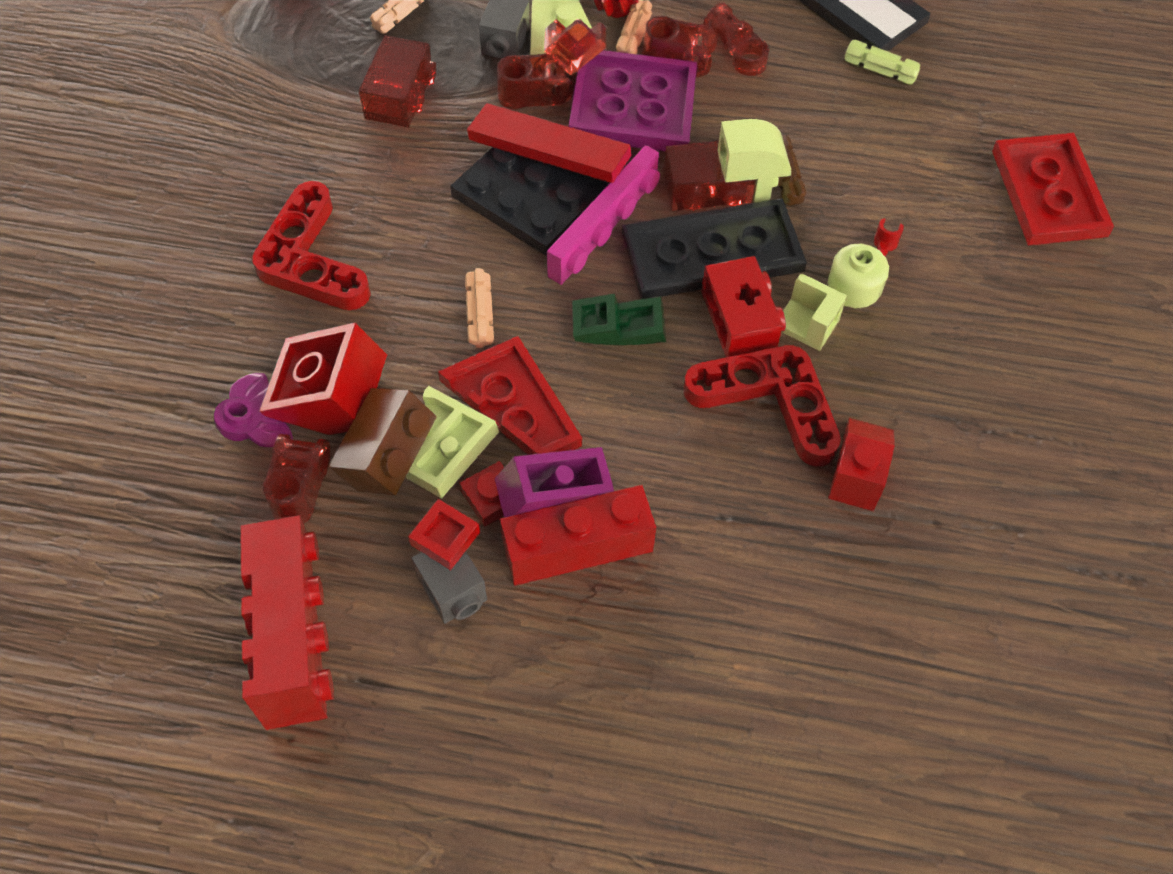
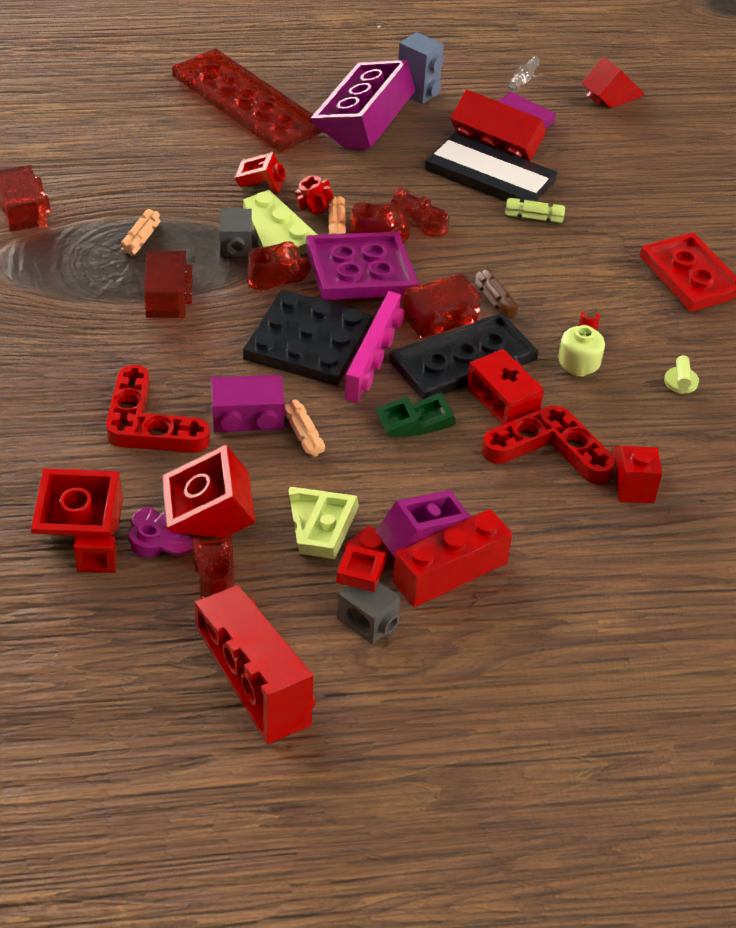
camera: 20 degrees left, 15 degrees down
(166, 361) = (78, 503): none -> red slope
(169, 424) = (95, 554): none -> red plate
(383, 441) = (277, 525): reddish brown brick -> none
(423, 261) = (247, 403): none -> magenta brick
(515, 394) = (355, 472): red wing -> none
(549, 142) = (312, 302): red tile -> none
(574, 45) = (305, 232): clear red panel -> none
(753, 151) = (474, 279): yellowish green brick -> none
(813, 311) = (558, 379): yellowish green panel -> none
(977, 340) = (681, 378): none -> yellowish green plate

